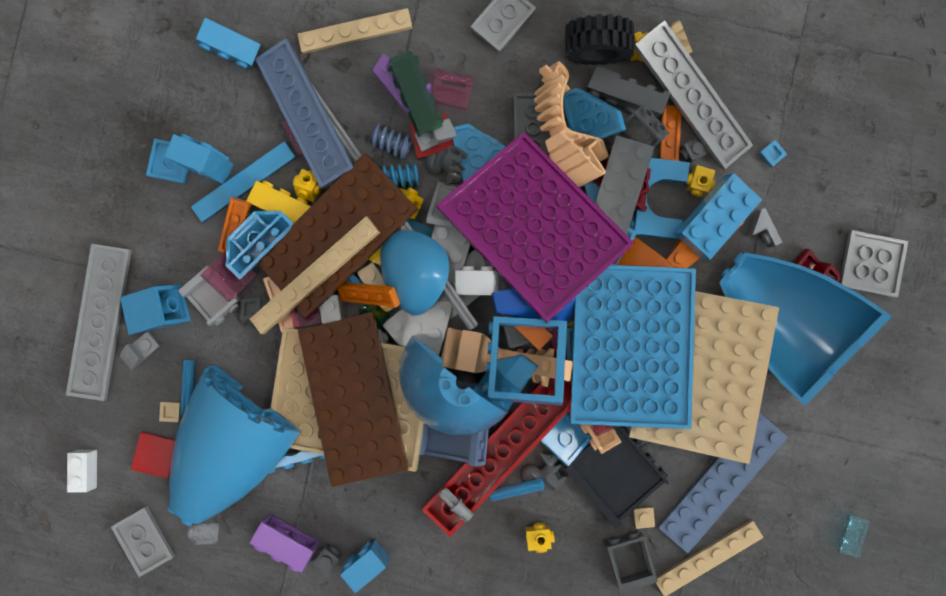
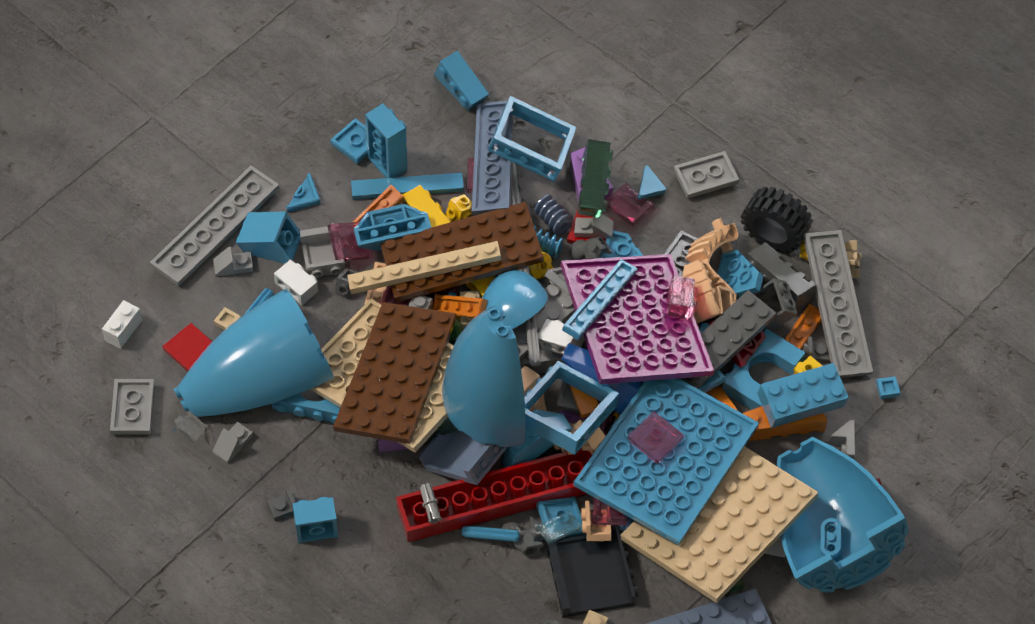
camera: 25 degrees right, 30 degrees down
(159, 243) = (304, 196): none -> dark azure tile
(206, 340) = (296, 281): none -> white brick
(248, 522) = (231, 442): none -> light grey slope
(284, 543) = (257, 465): medium lavender brick -> none
(330, 102) = (523, 155): none -> dark azure window
(355, 31) = (591, 129): tan plate -> none
(459, 58) = (650, 185): none -> dark azure tile
(495, 230) = (599, 299): none -> dark azure tile
(536, 543) = (486, 583): yellow brick -> none
(565, 181) = (681, 297): none -> clear pink brick
(572, 455) = (559, 527): none -> clear light blue tile
(618, 339) = (655, 437): none -> clear pink plate
(800, 333) = (831, 539): none -> dark azure plate
(873, 263) = (936, 520): light grey plate -> none

